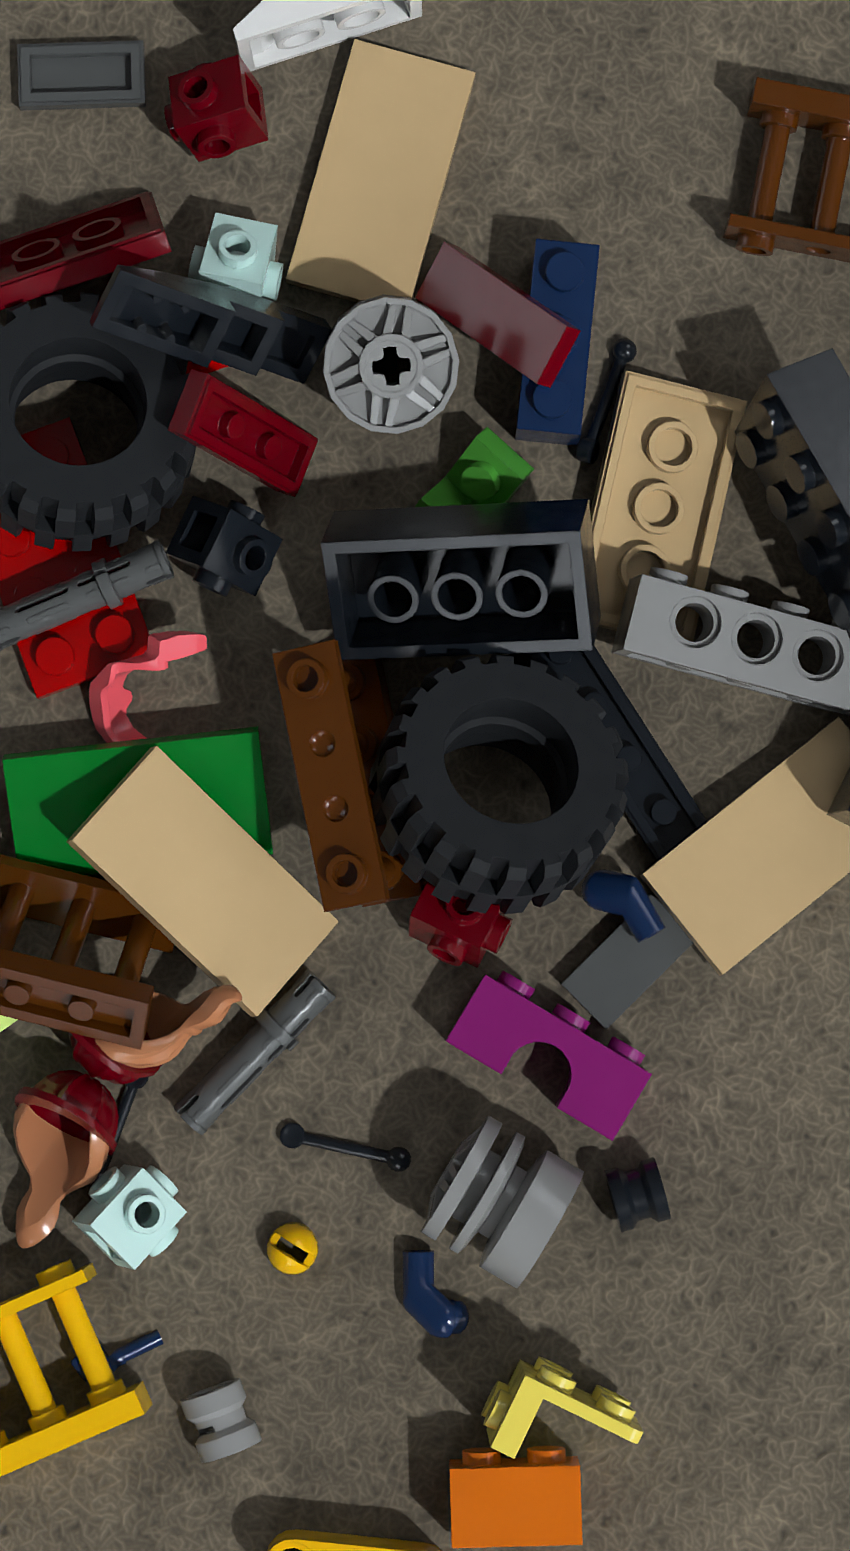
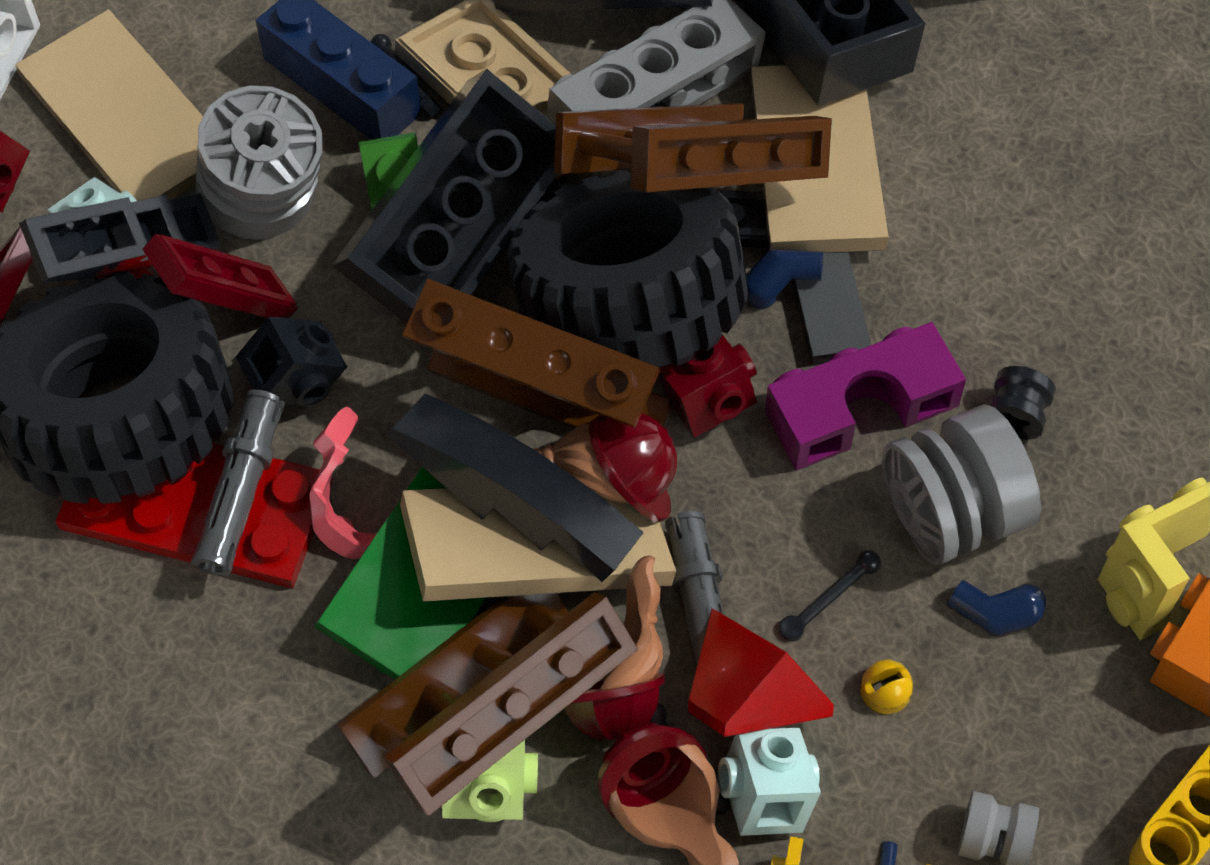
camera: 55 degrees left, 25 degrees down
(197, 1145) = (750, 683): none -> red slope
(222, 838) = (529, 490): none -> black slope
(293, 896) = (621, 462): none -> dark red piece
(497, 314) = (302, 61): tile -> none
(628, 792) = (692, 146): none -> reddish brown fence

